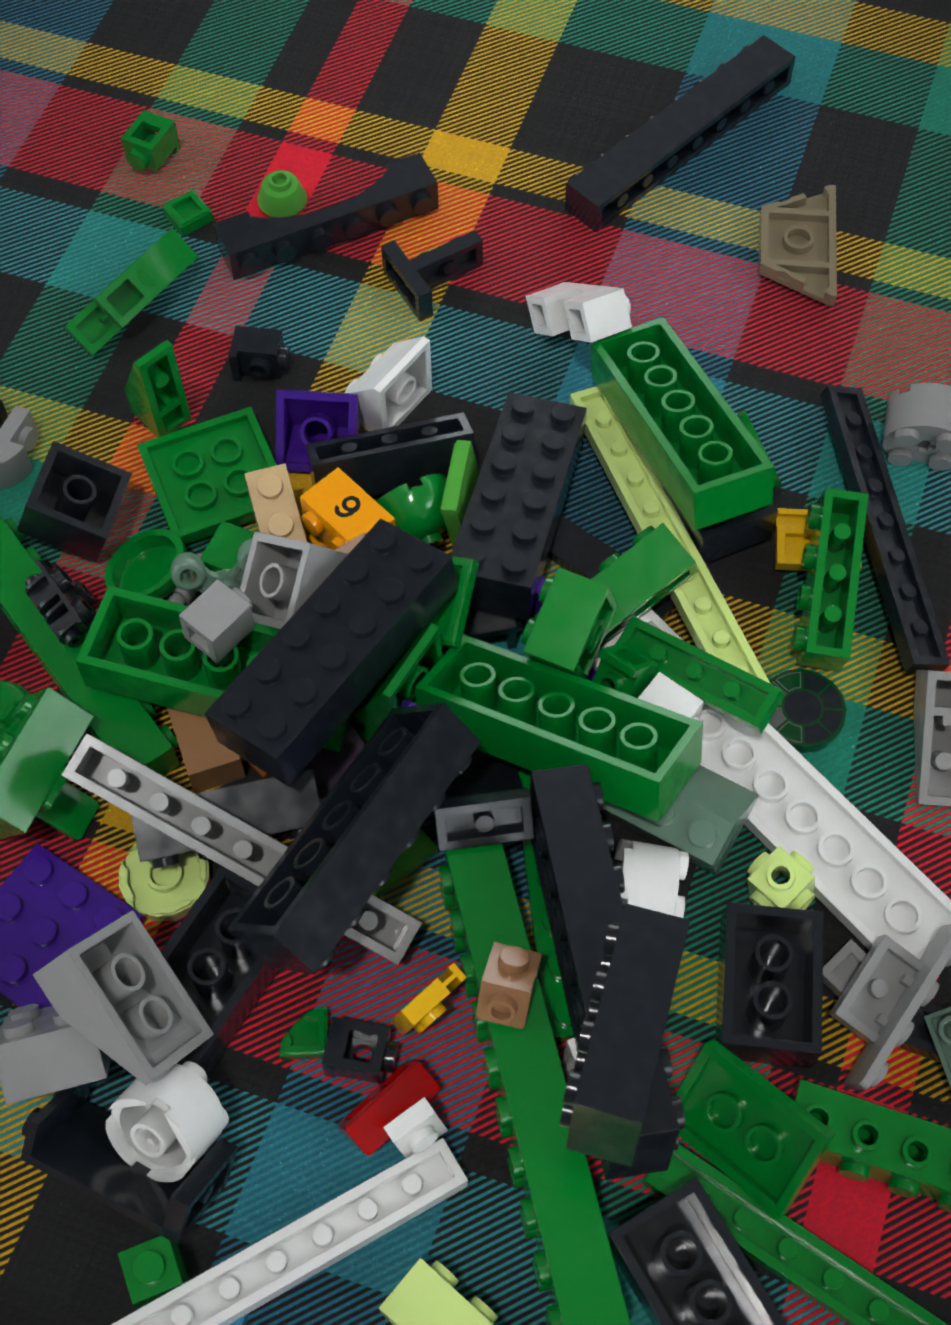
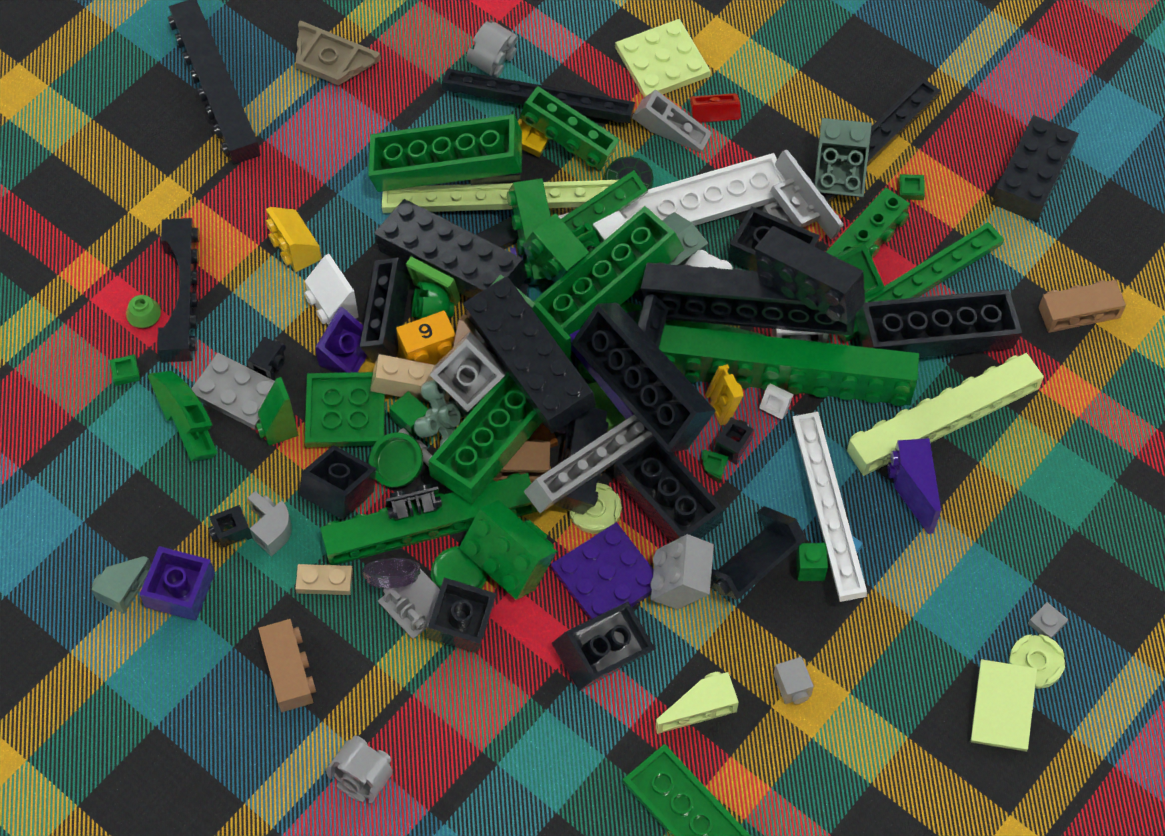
camera: 70 degrees left, 0 degrees up
(125, 999) = (678, 516): light grey slope -> none
(145, 147) = (57, 371): green brick -> none
(167, 1122) = (742, 527): white brick -> none
(201, 334) = (233, 389): none -> light grey plate
(218, 620) = (483, 406): light grey brick -> none
(385, 1103) = (767, 436): red slope -> none
(415, 1128) = (782, 426): white bracket -> none
(430, 269) = (250, 260): black bracket -> none
(463, 303) = (292, 237): none -> yellow slope
(463, 1098) = (776, 401): none -> white plate
(508, 985) = (743, 341): medium nougat bracket -> none
(584, 309) = (349, 165): white arch -> none
(795, 893) = (723, 222): yellowish green brick -> none

